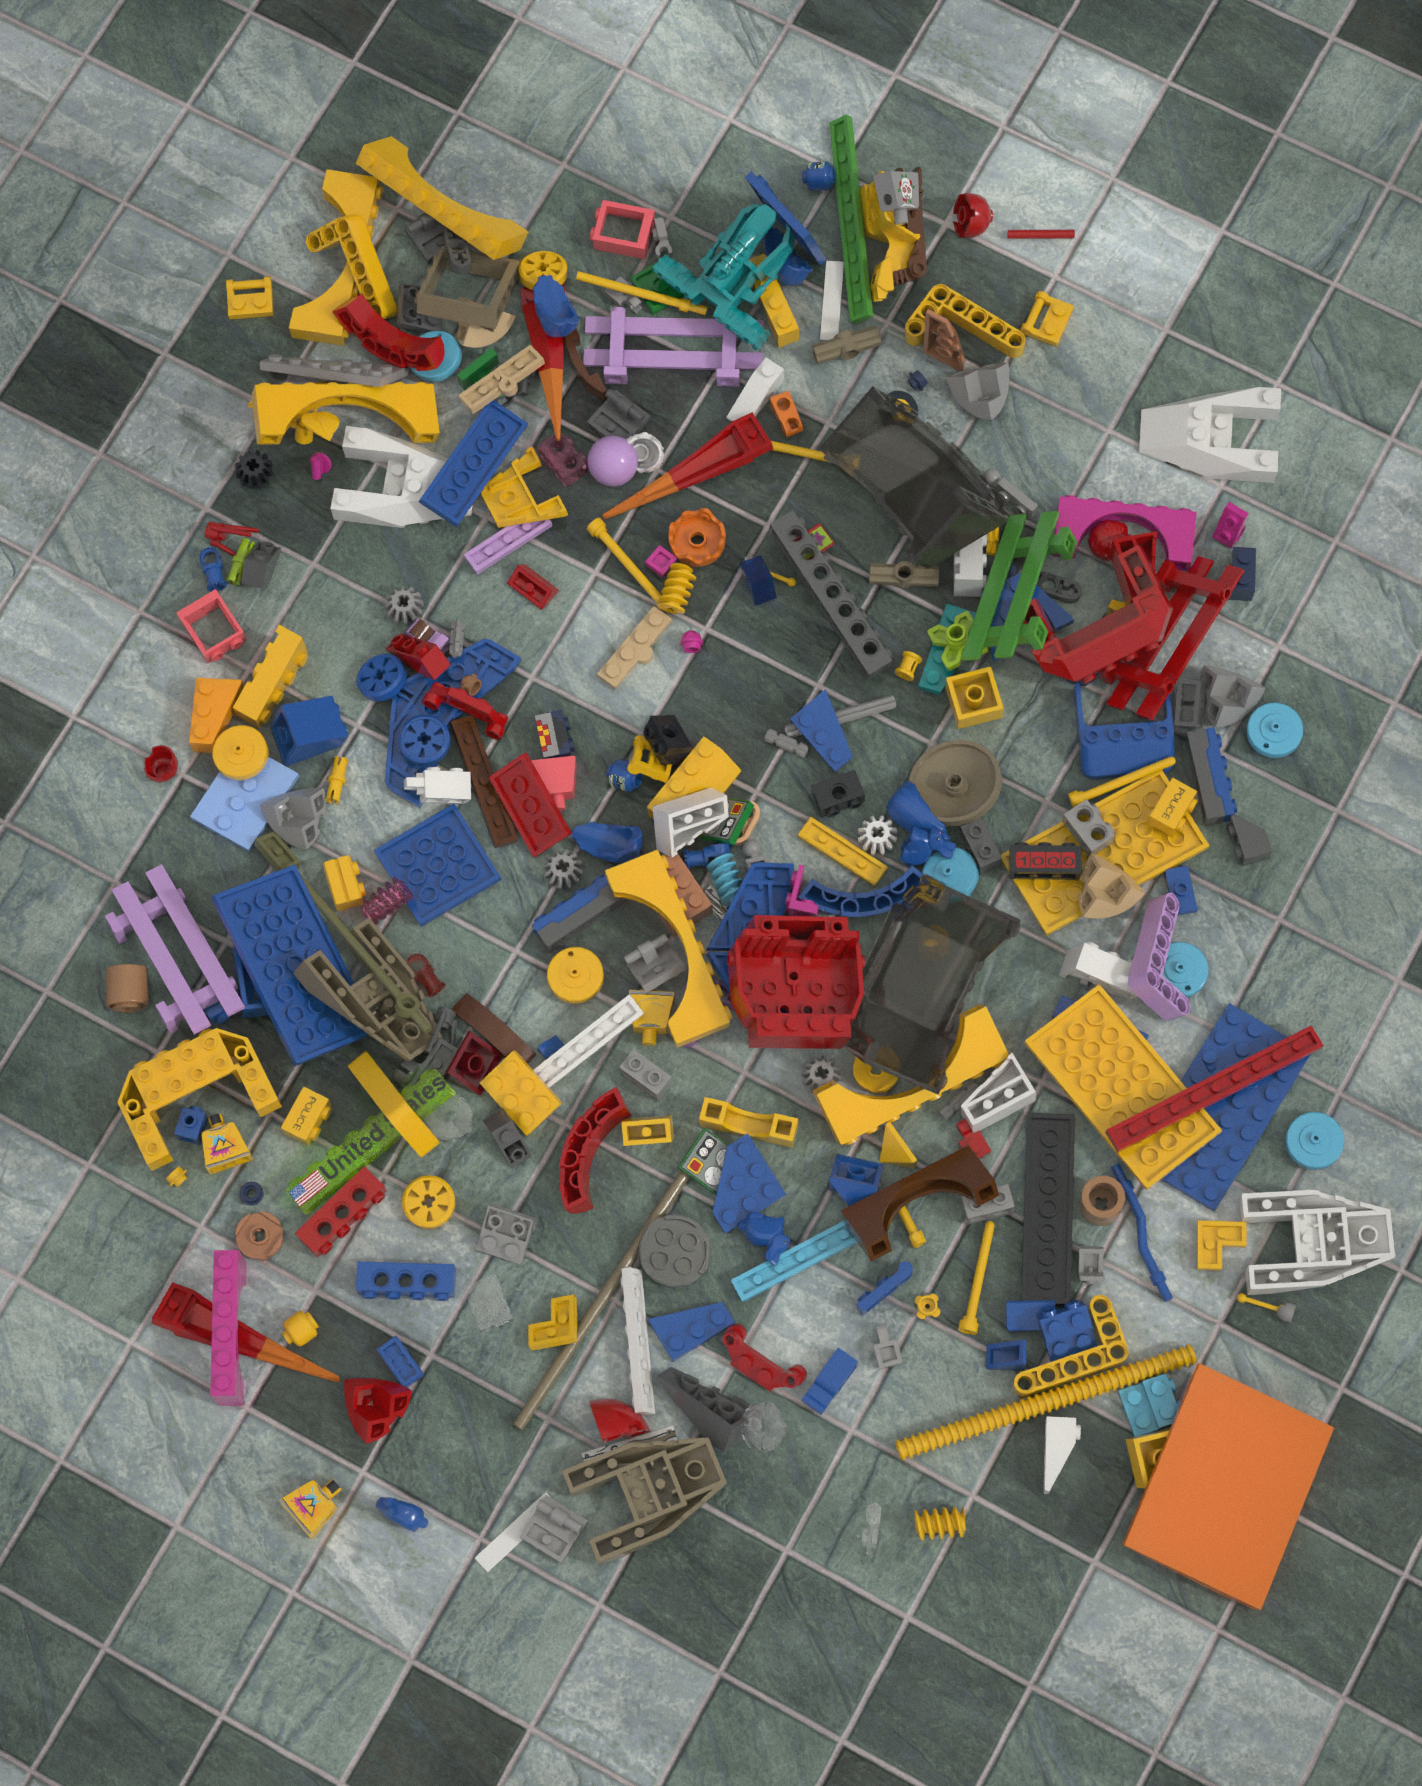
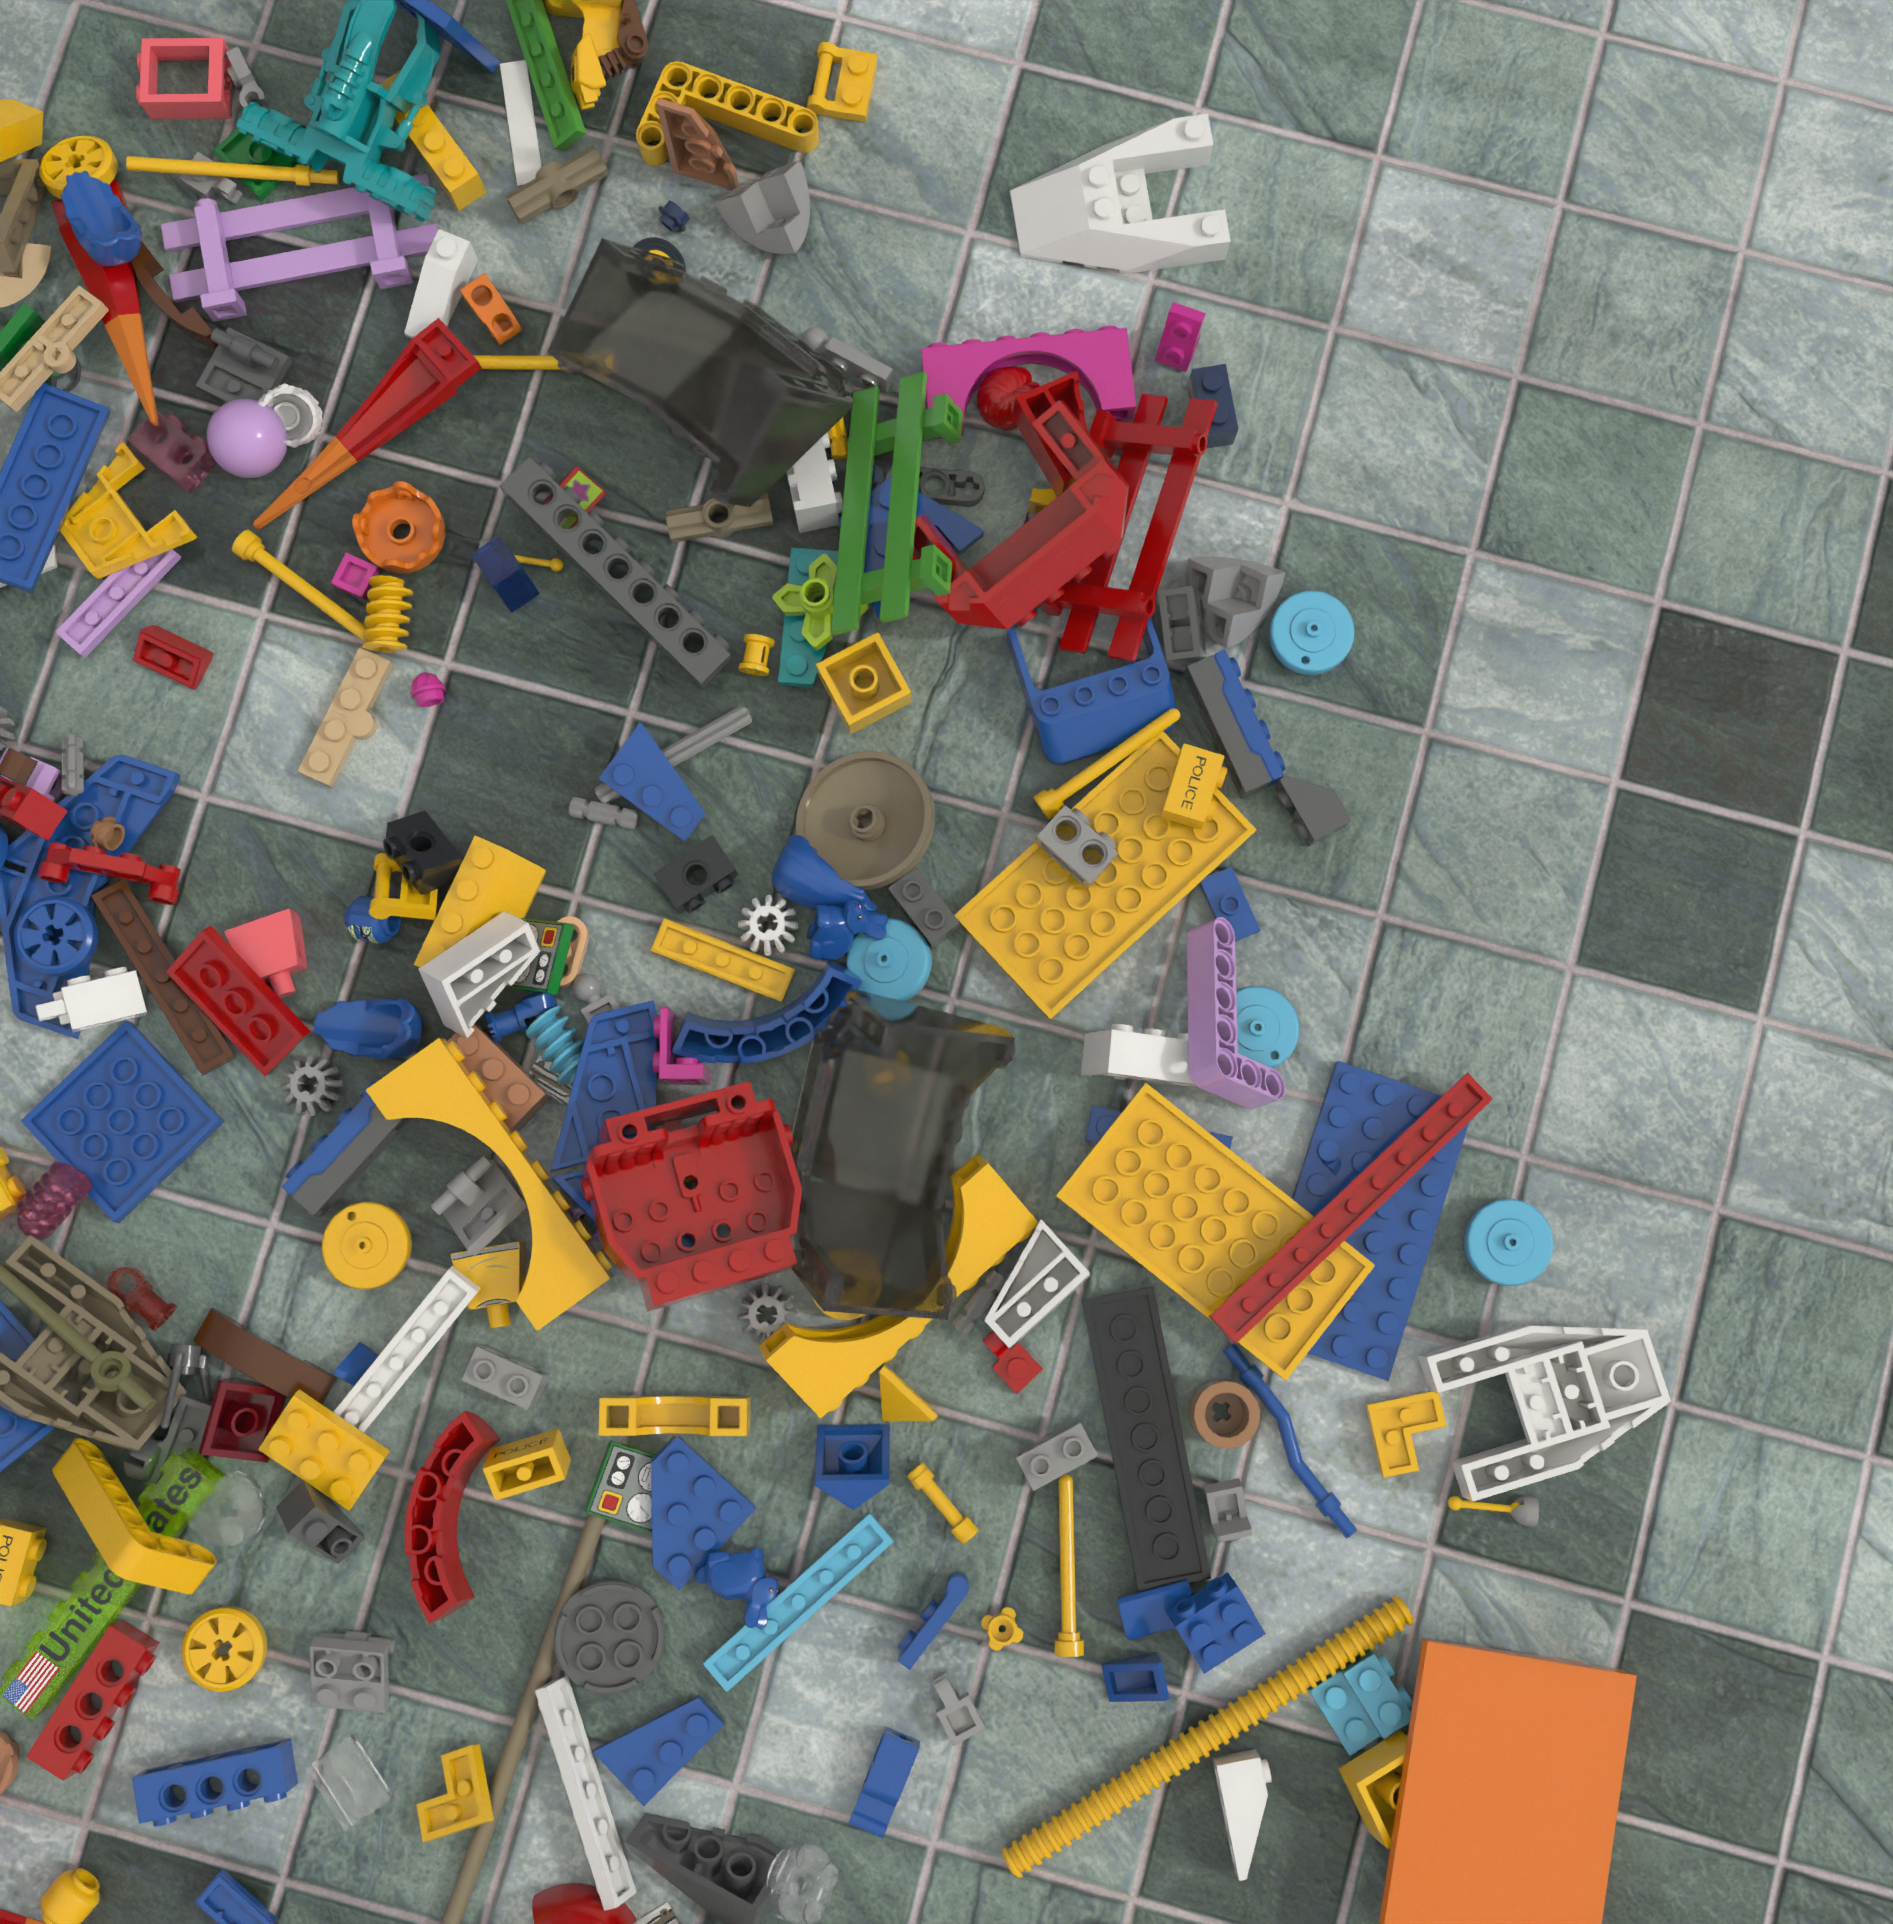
camera: 20 degrees left, 10 degrees up
(524, 384) = (91, 344): dark grey arm -> none
(553, 735) = (252, 882): brick -> none
(757, 1365) = (772, 1785): red plate -> none
(794, 269) = (450, 85): blue hair -> none
(956, 1173) = (890, 1523): reddish brown arch -> none
(1045, 861) = (1024, 912): black brick -> none
(1080, 1359) = (1252, 1673): yellow beam -> none
(1106, 889) = (1124, 935): tan brick -> none

